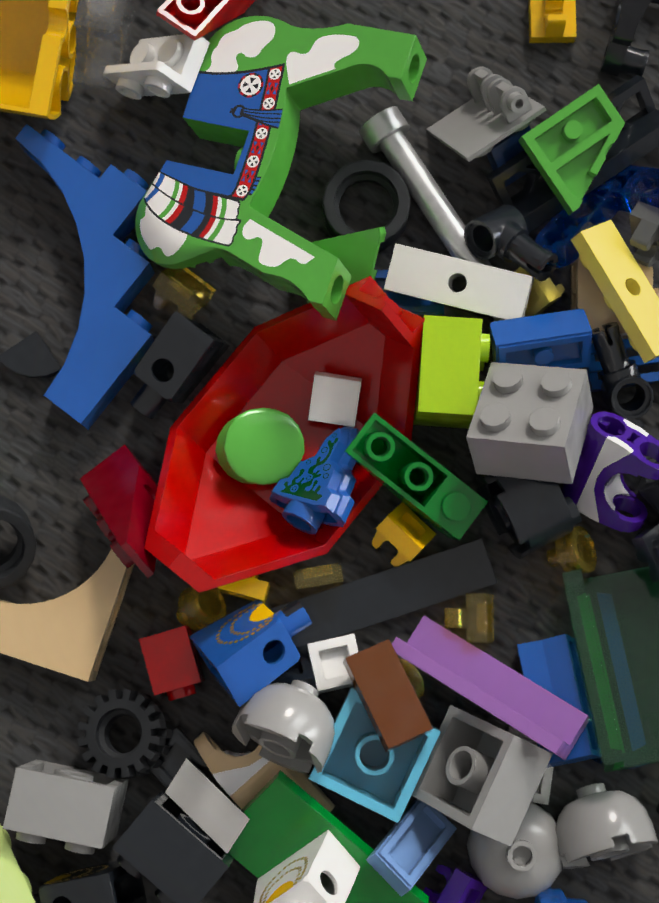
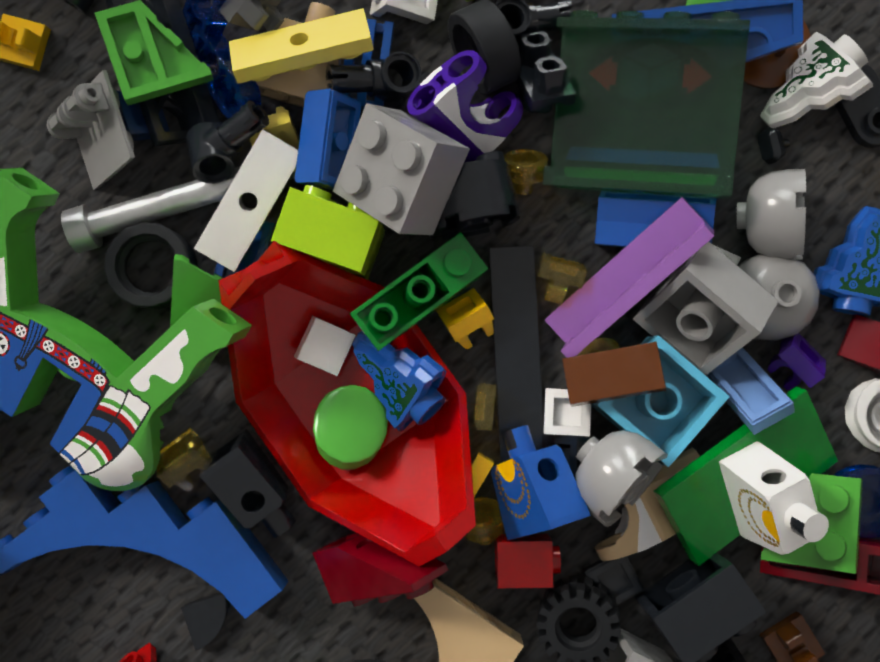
camera: 75 degrees left, 5 degrees up
(207, 806) = (664, 564): white sticker -> none

